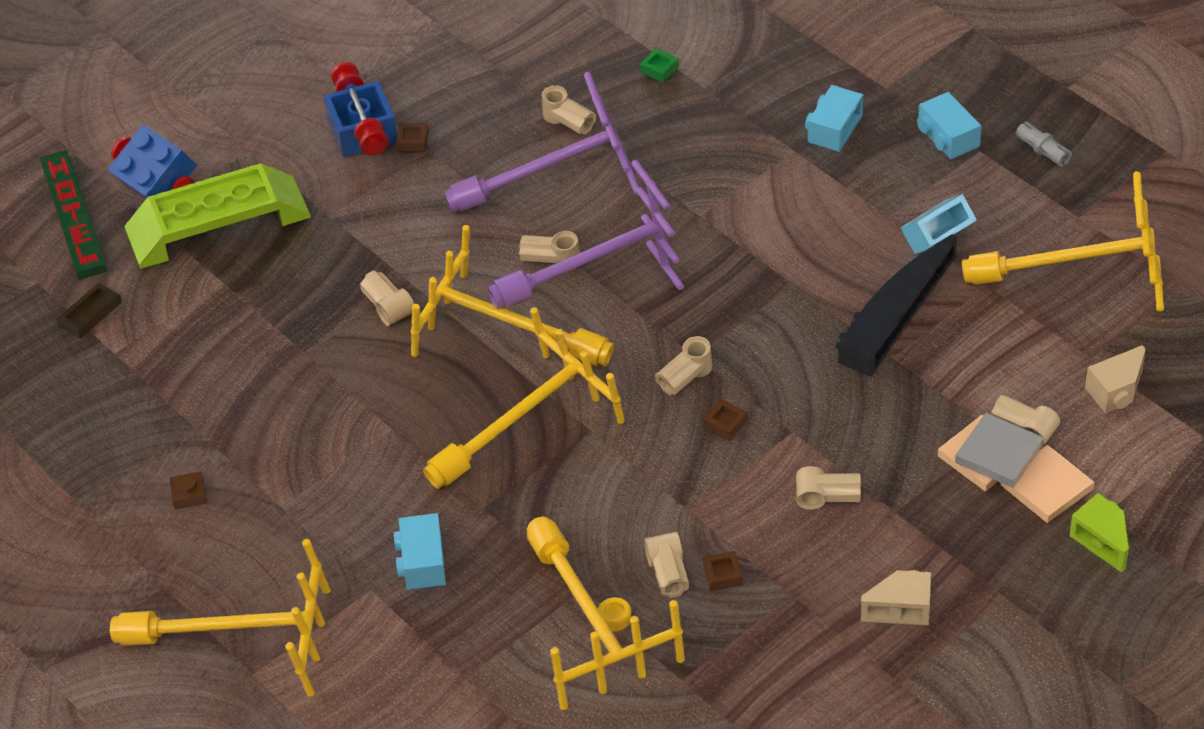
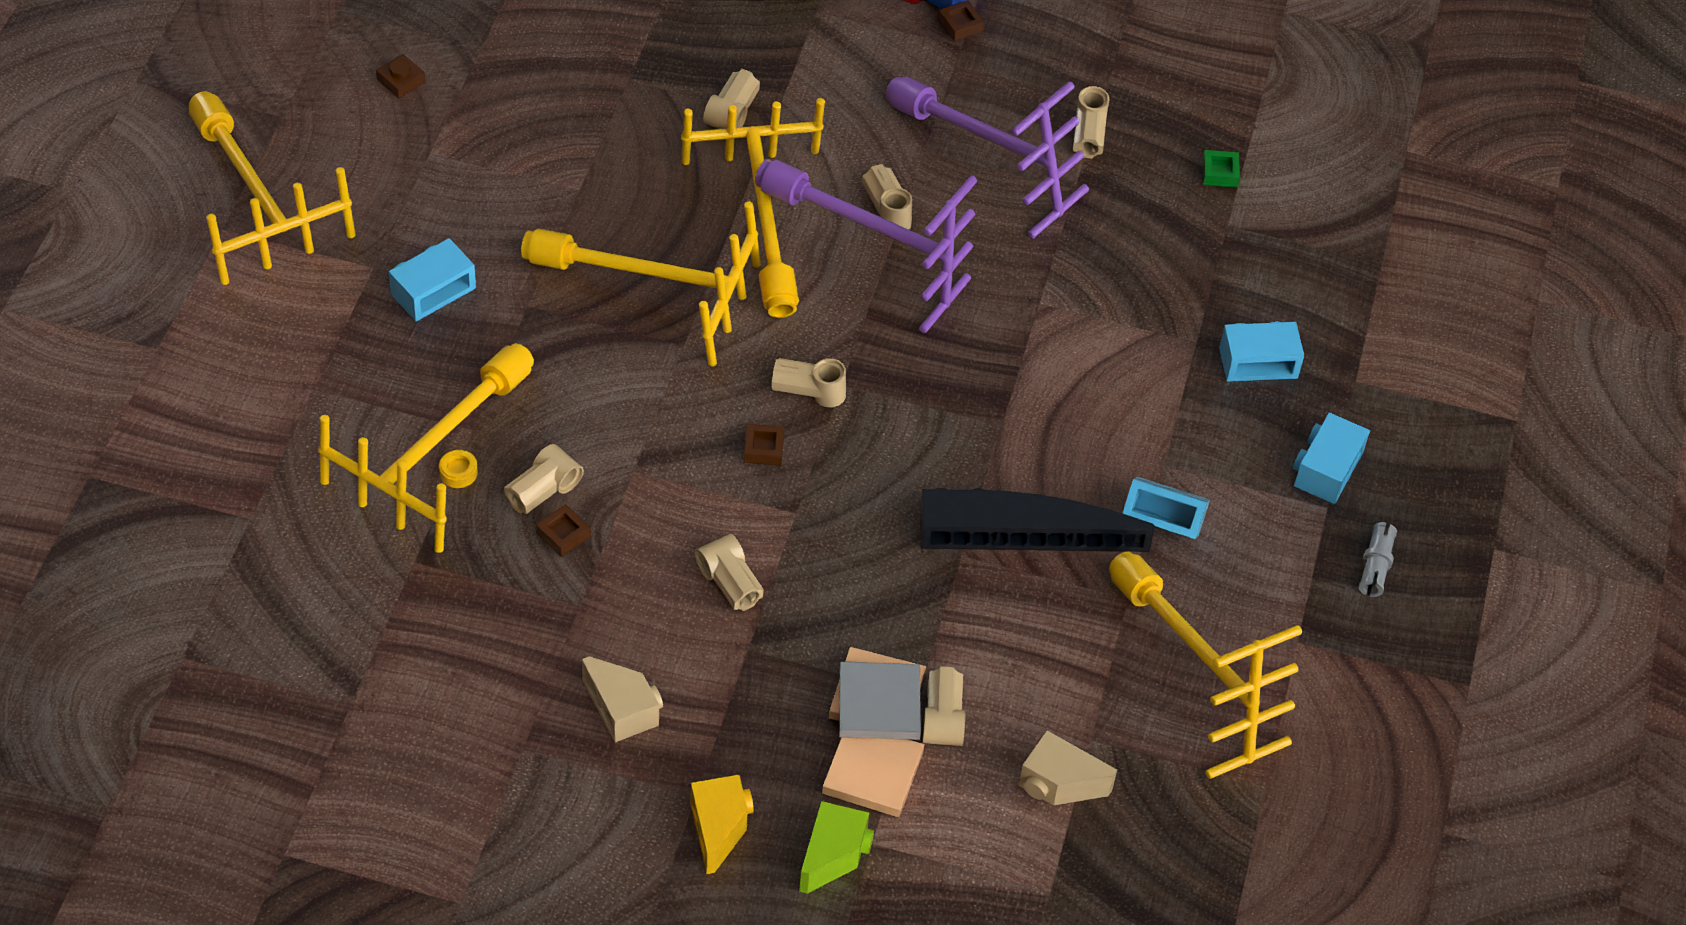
camera: 50 degrees right, 5 degrees up
(1043, 587) = (719, 817): none -> yellow slope

